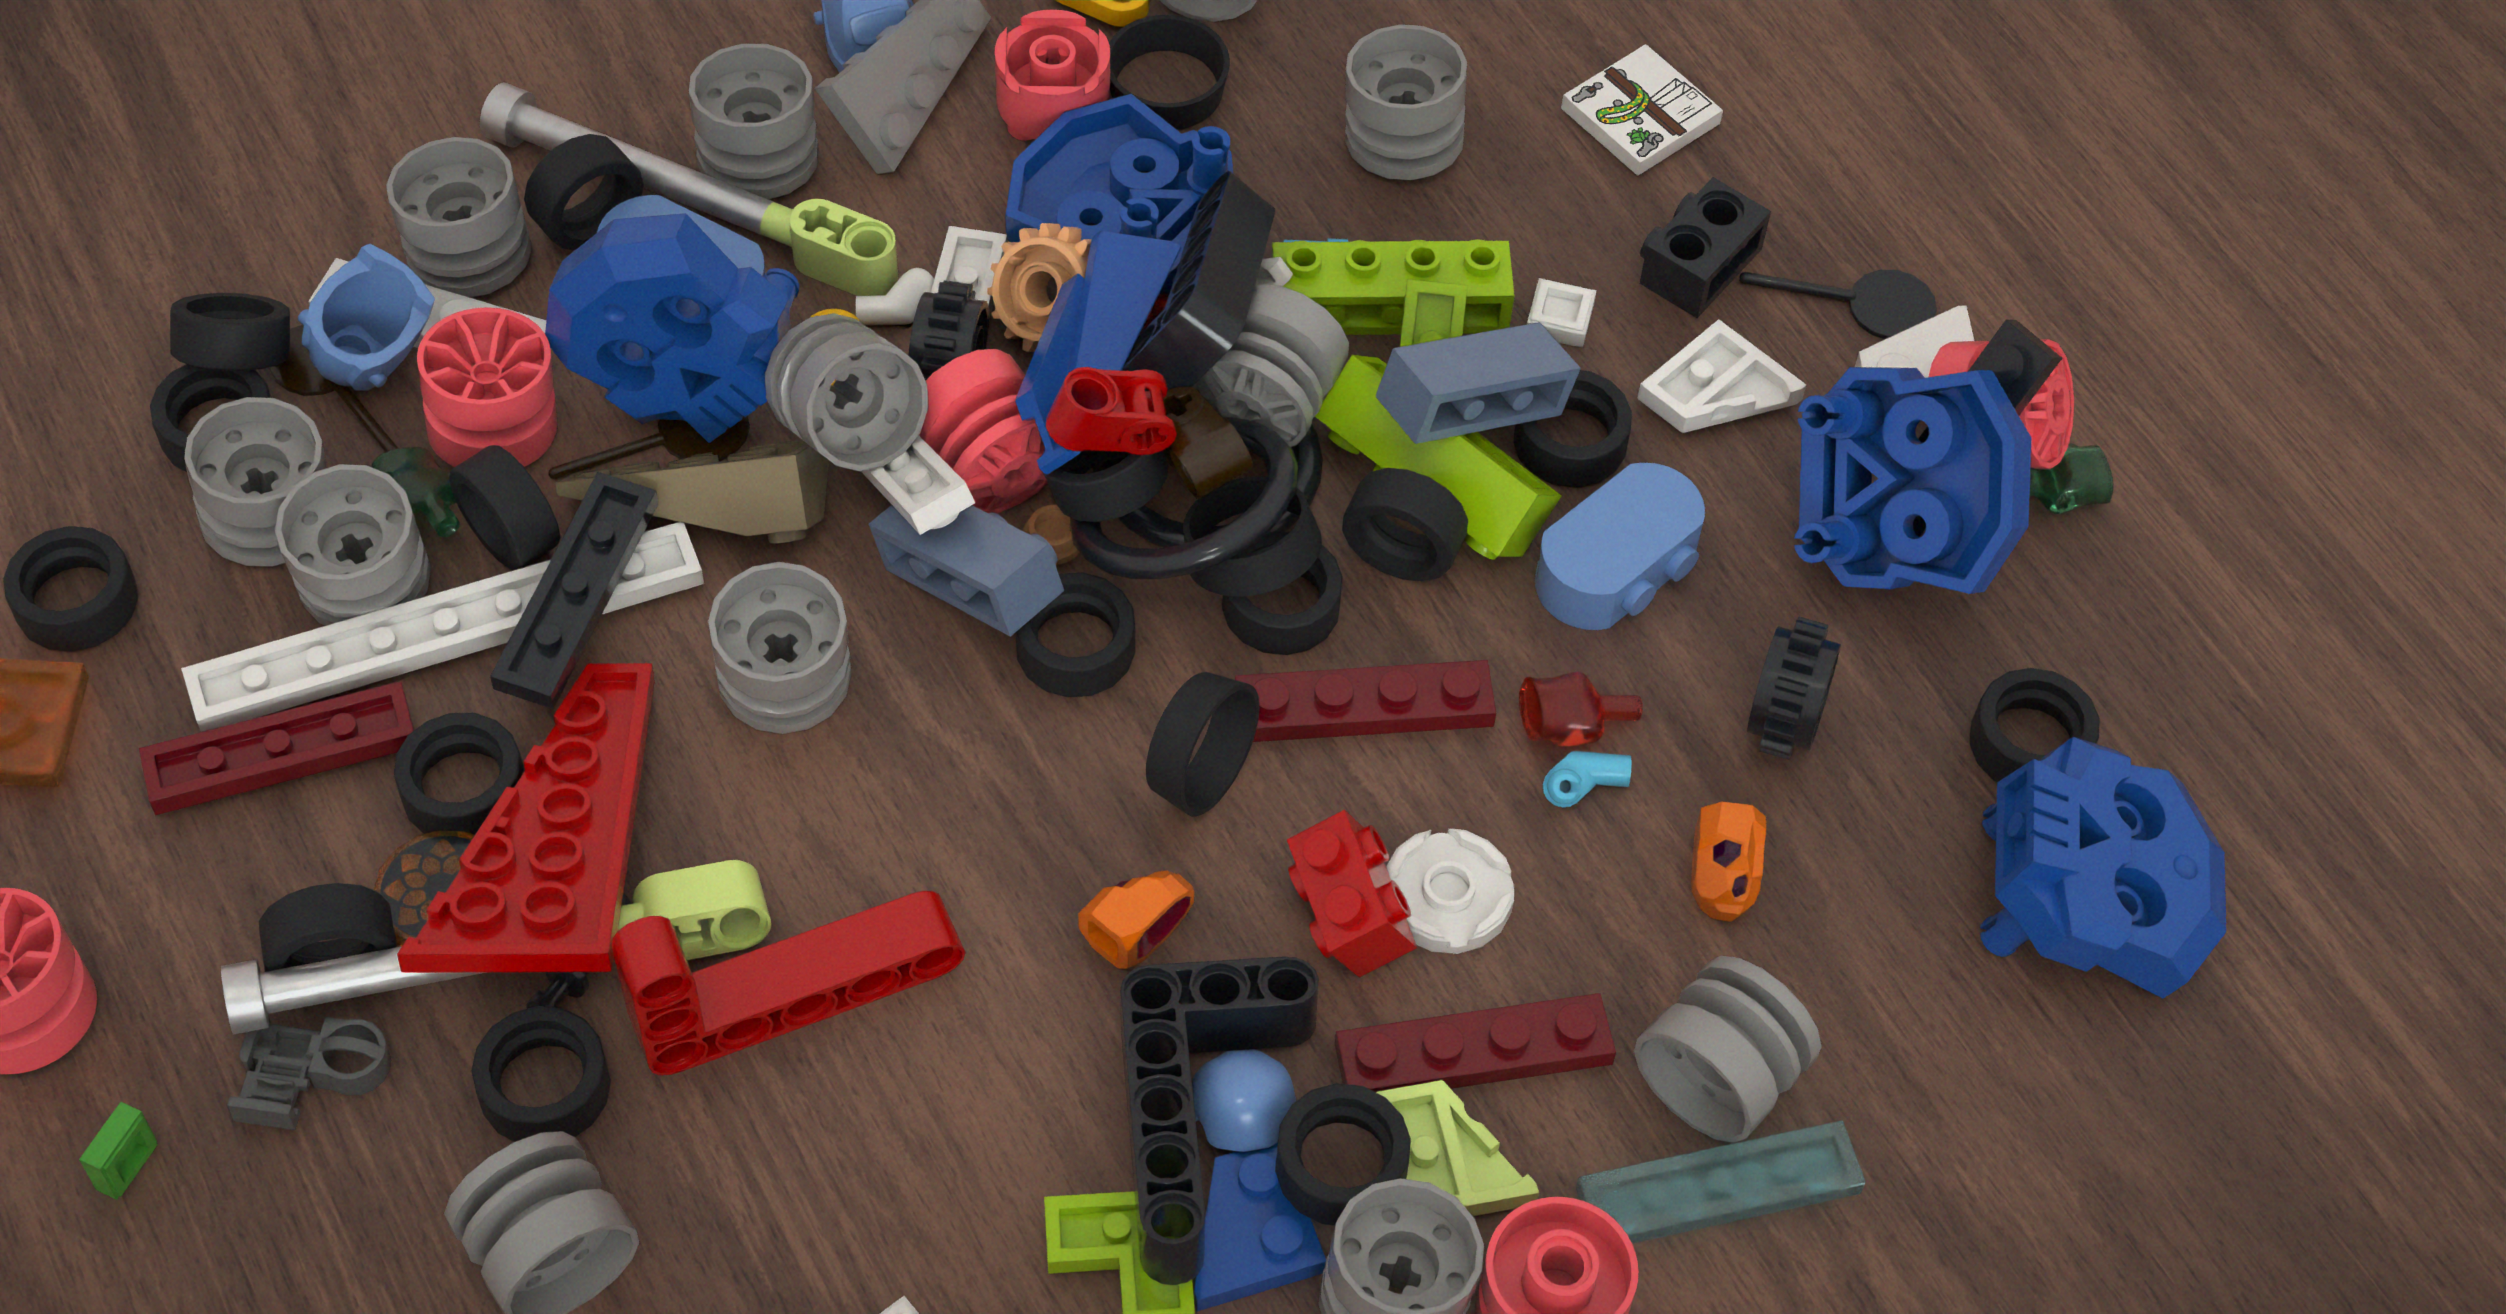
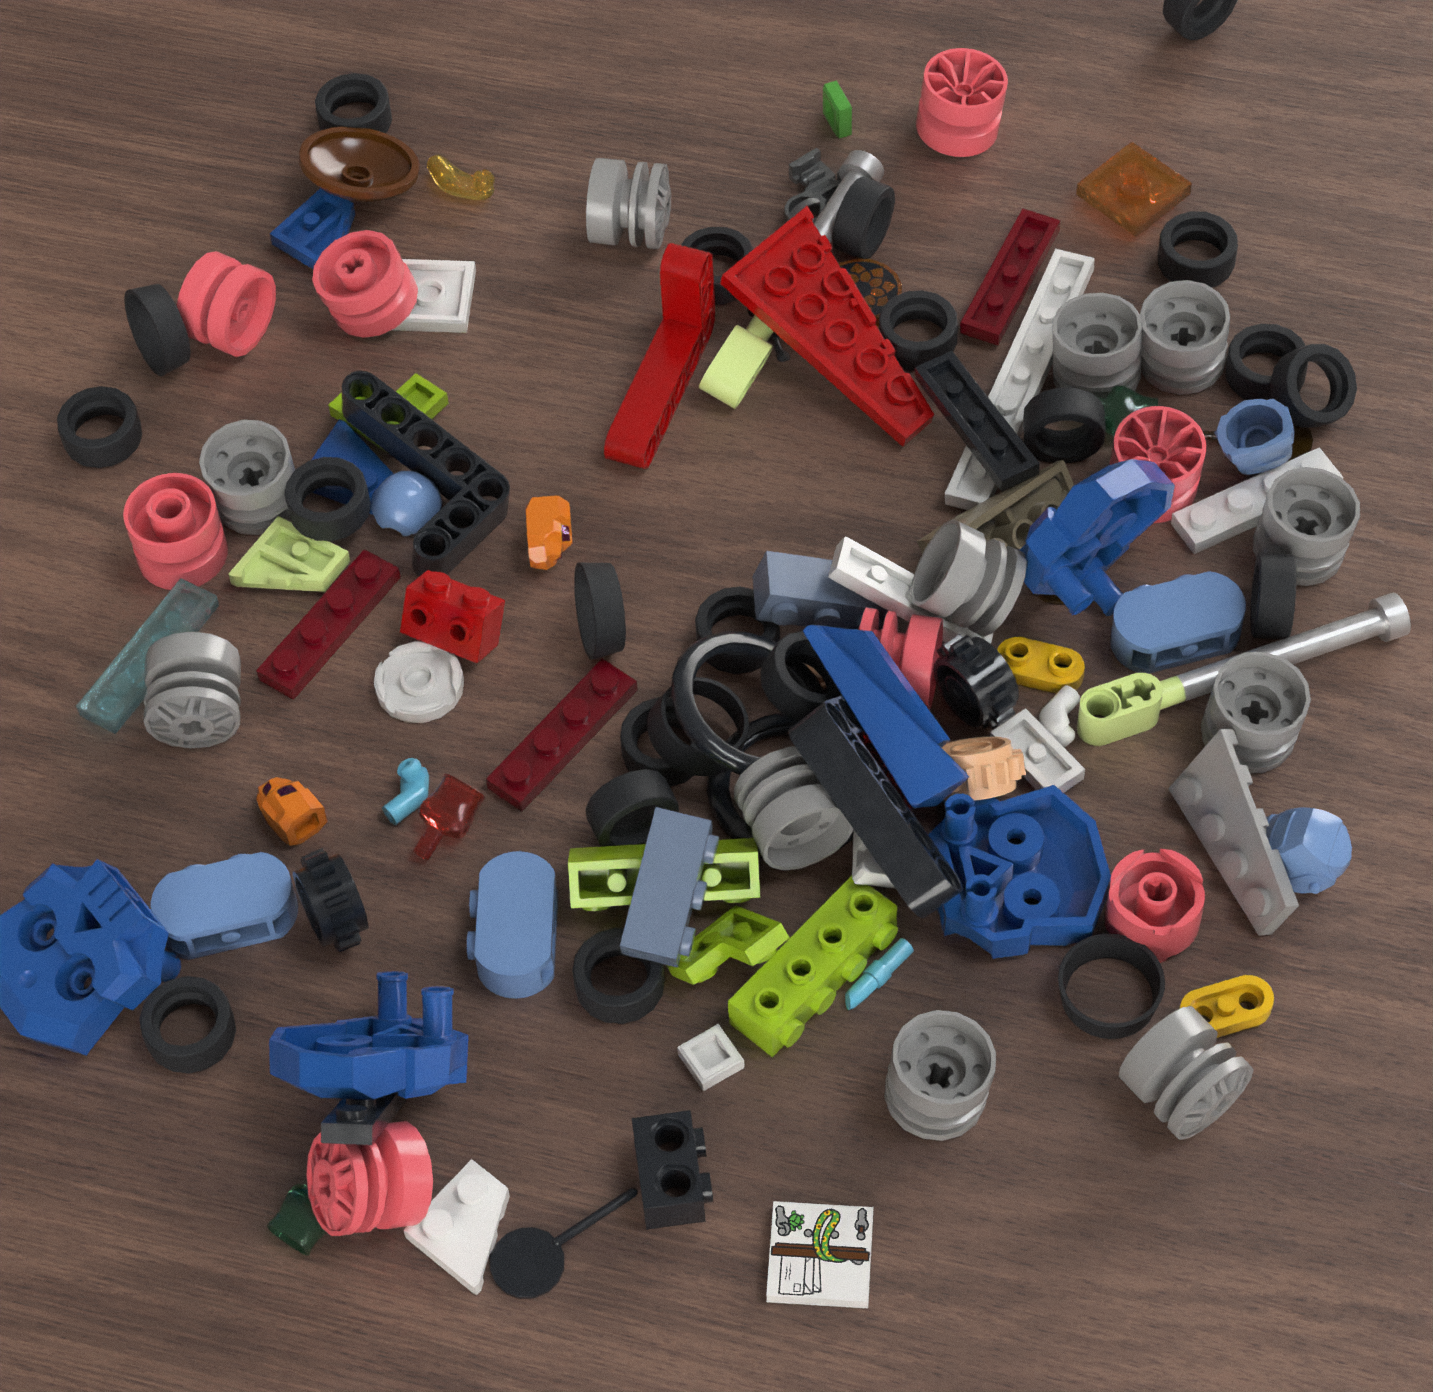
camera: 140 degrees right, 0 degrees up
(780, 647) = (849, 478): light grey wheel -> none
(1108, 411) = (802, 655): red piece -> none
(1206, 445) = (759, 706): dark brown piece -> none
(1718, 381) = (570, 1087): white wing -> none
(1894, 812) = (225, 905): none -> medium blue brick

